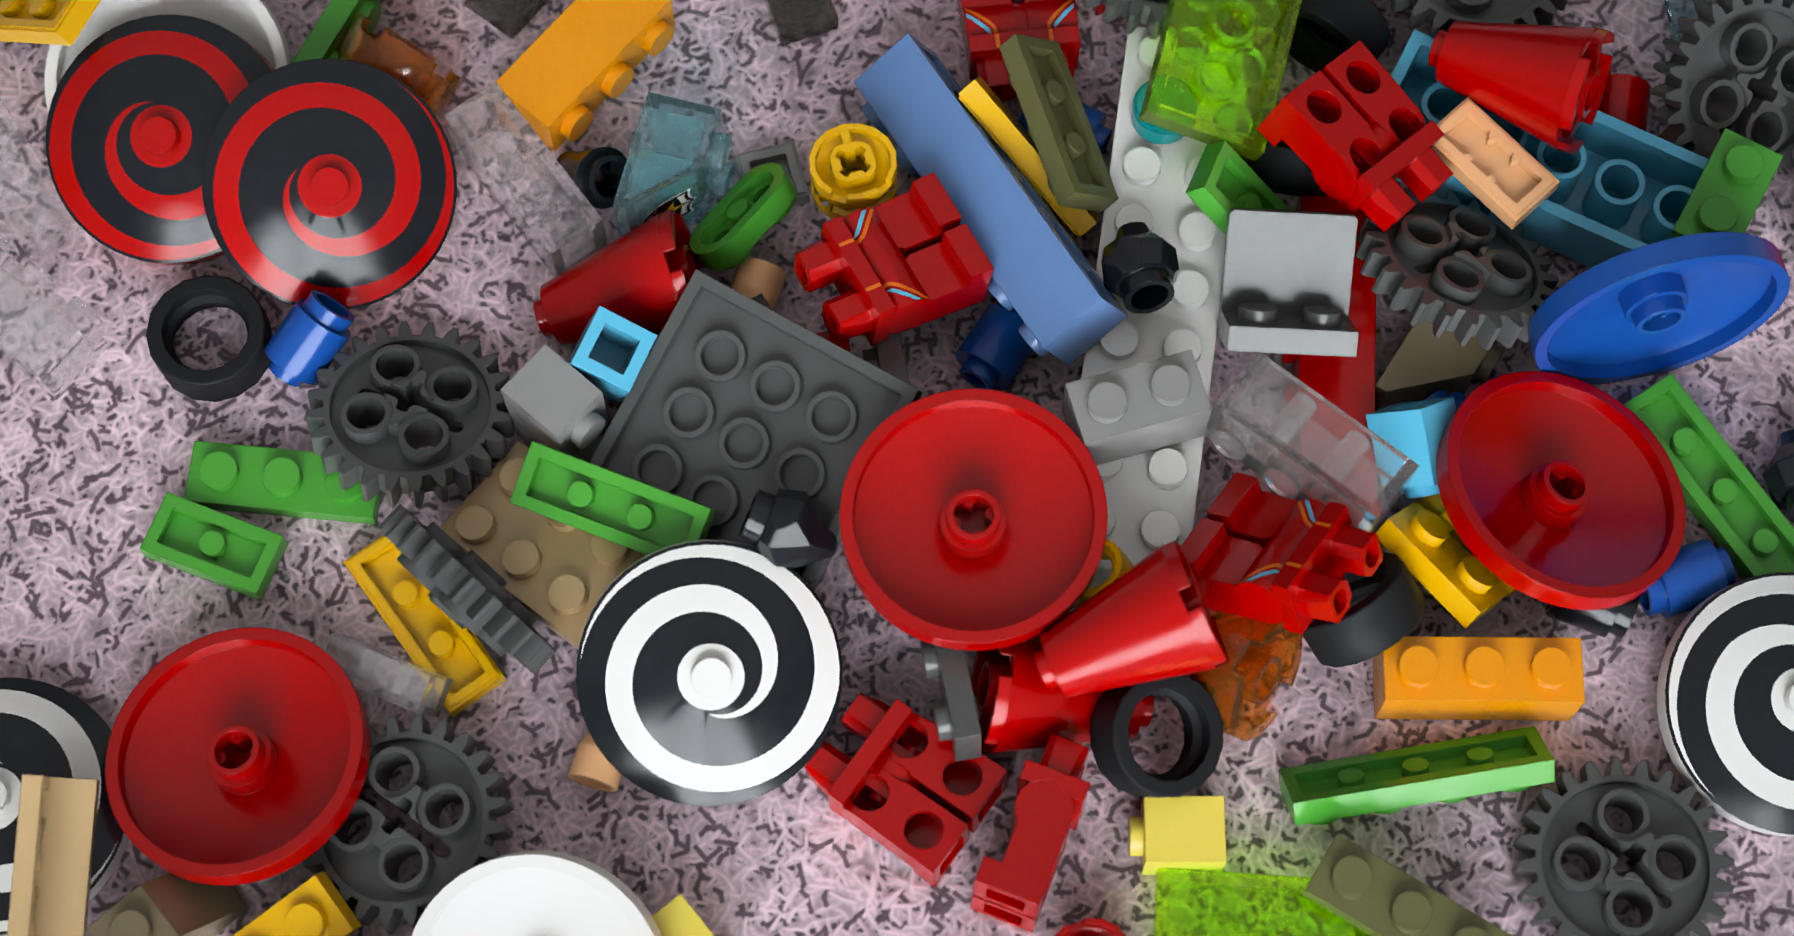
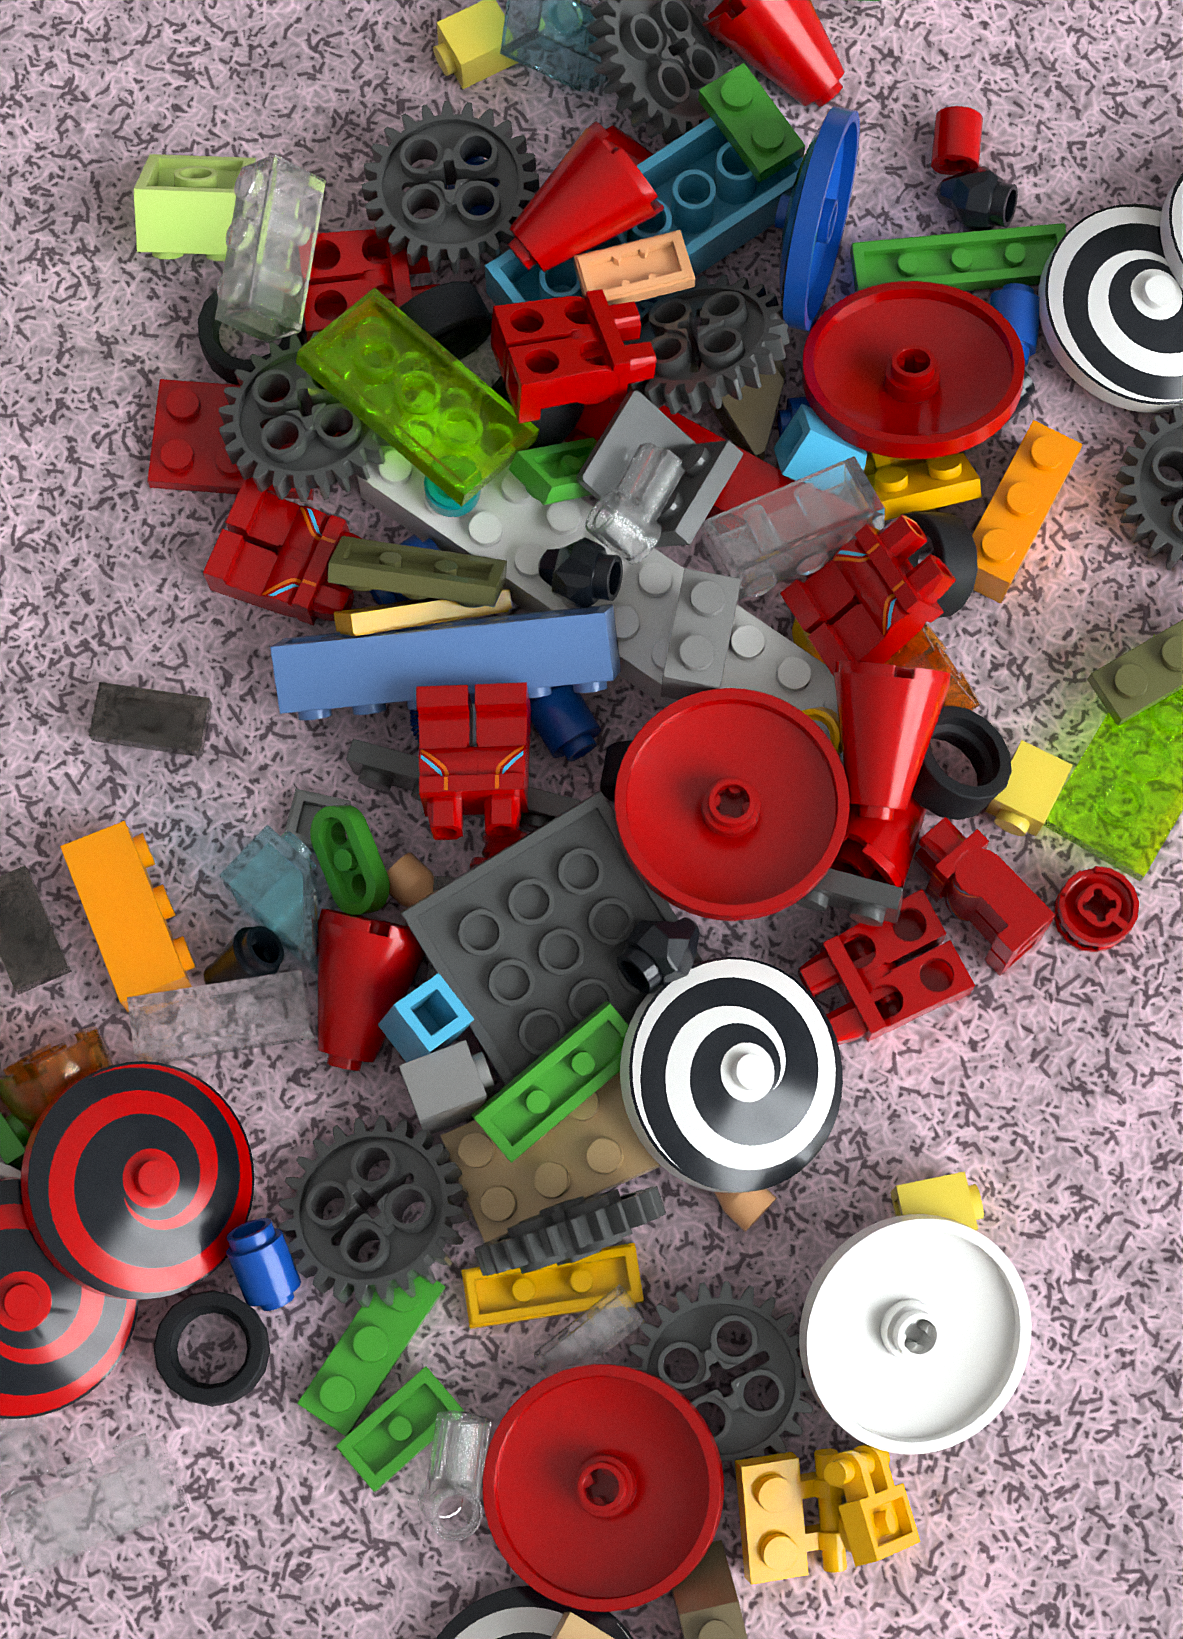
camera: 65 degrees left, 5 degrees up
(188, 611) = (453, 1470): none -> clear piece
(871, 172) = (371, 750): yellow wheel -> none
(1218, 277) = (629, 514): none -> clear piece
(1416, 776) = (1066, 597): bright green plate -> none

